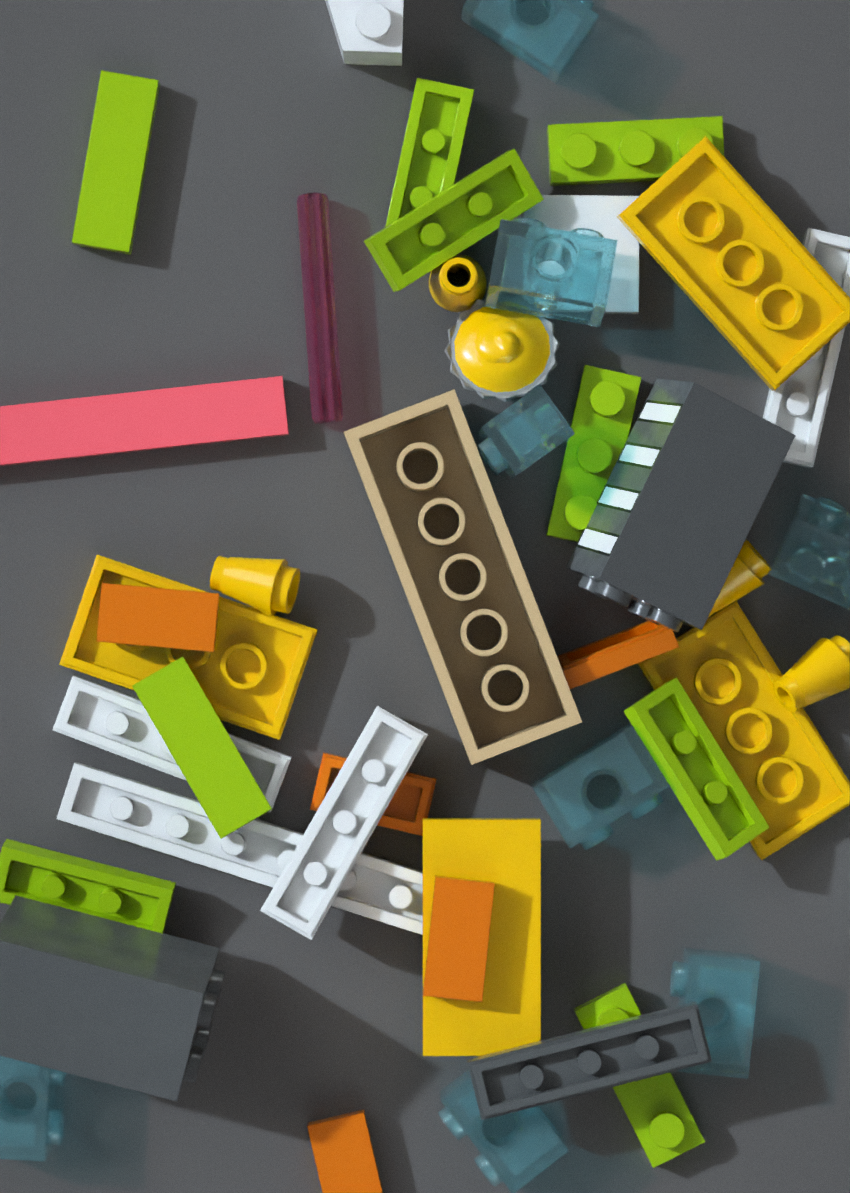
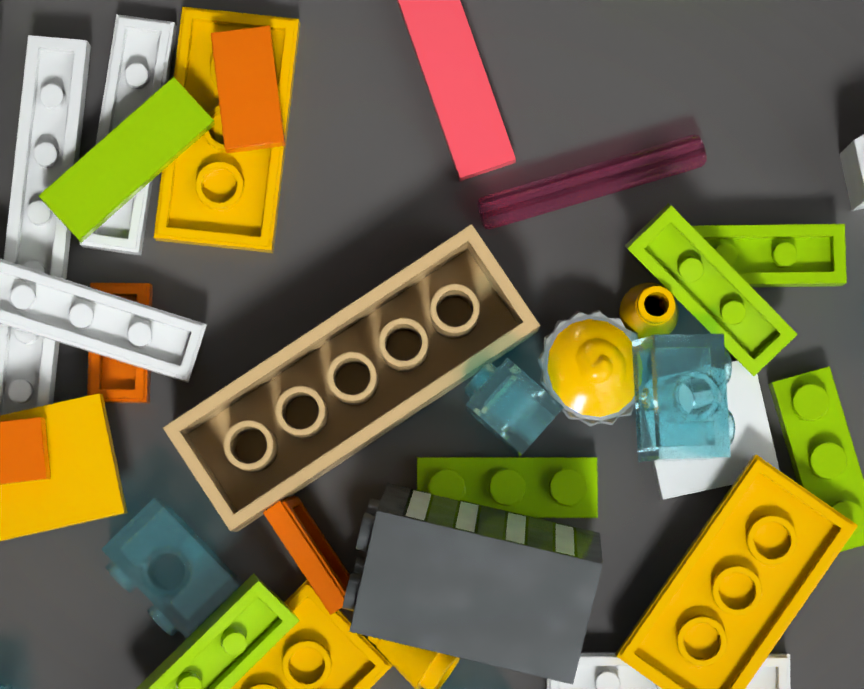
camera: 85 degrees right, 5 degrees down
(257, 582) = (305, 181): yellow cone -> none

